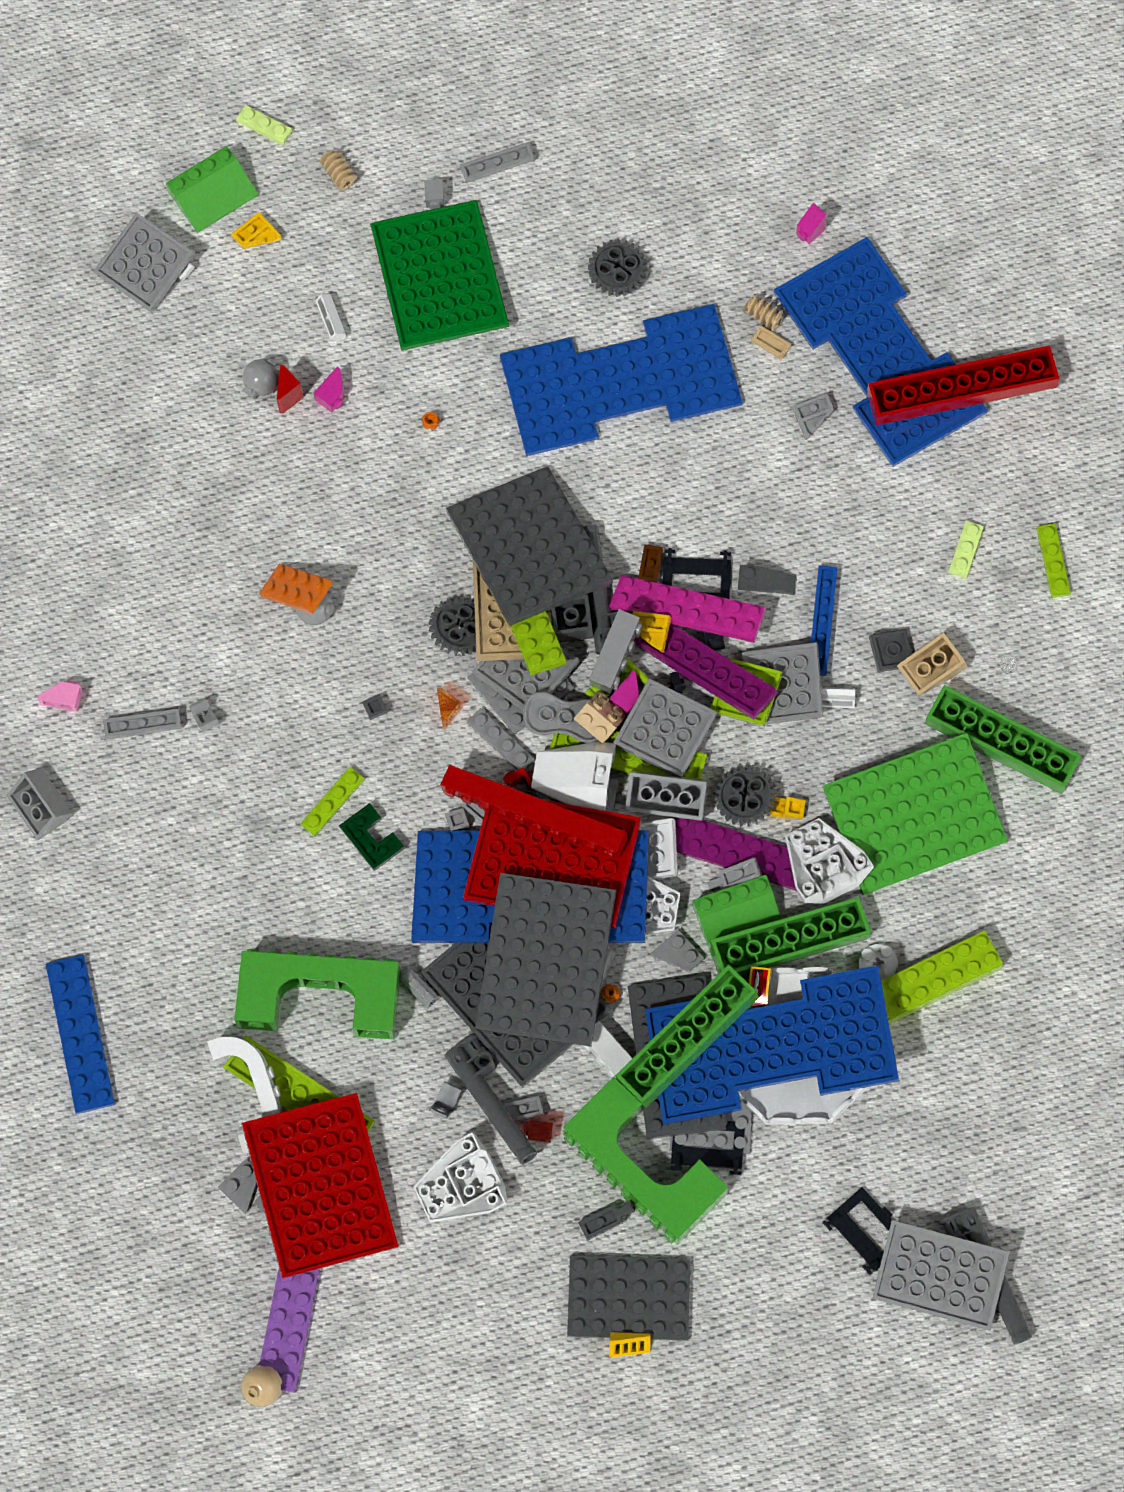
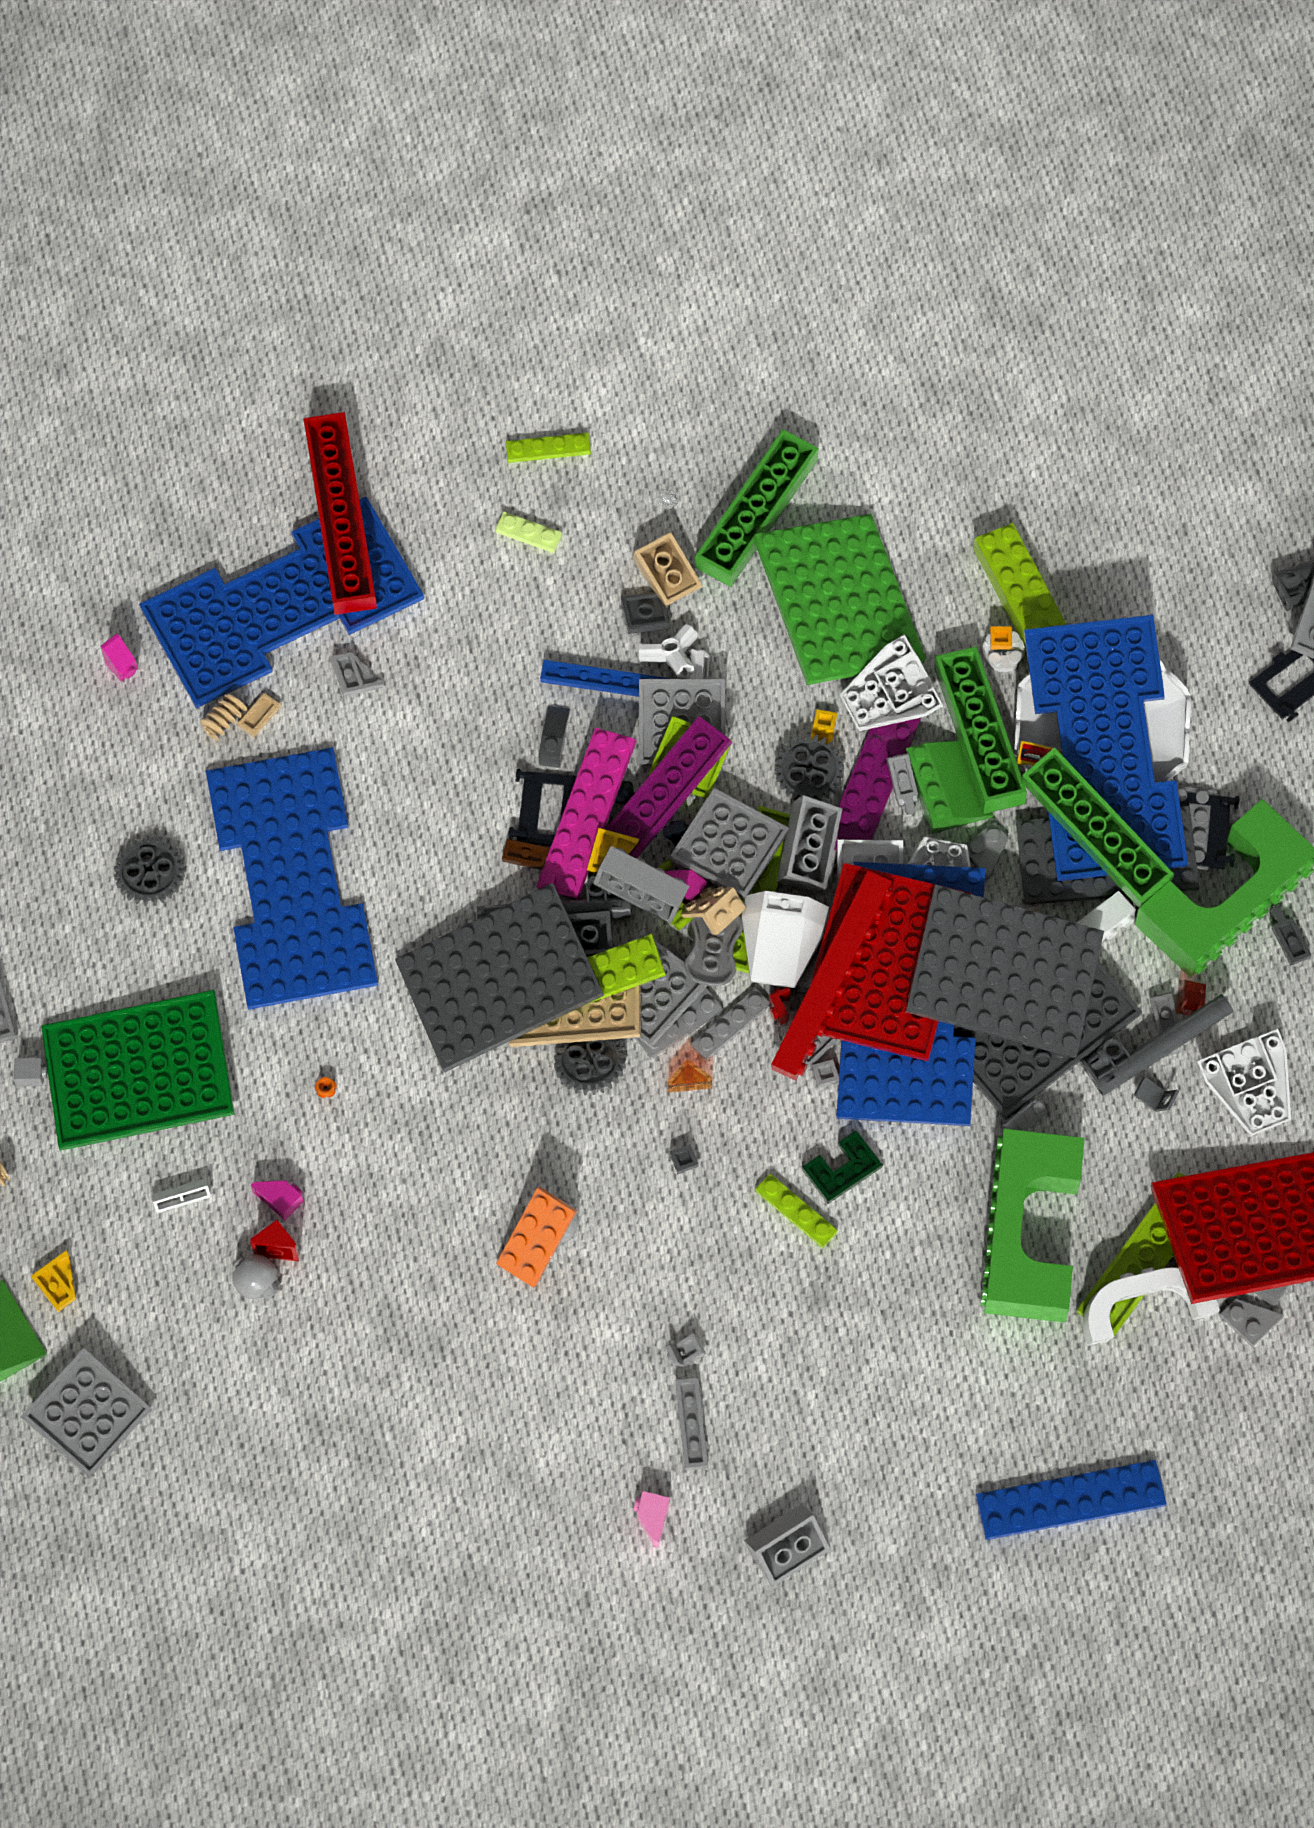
camera: 90 degrees left, 5 degrees down
(851, 673) = (672, 651): none -> white piece
(885, 956) = (1000, 637): none -> light orange plate

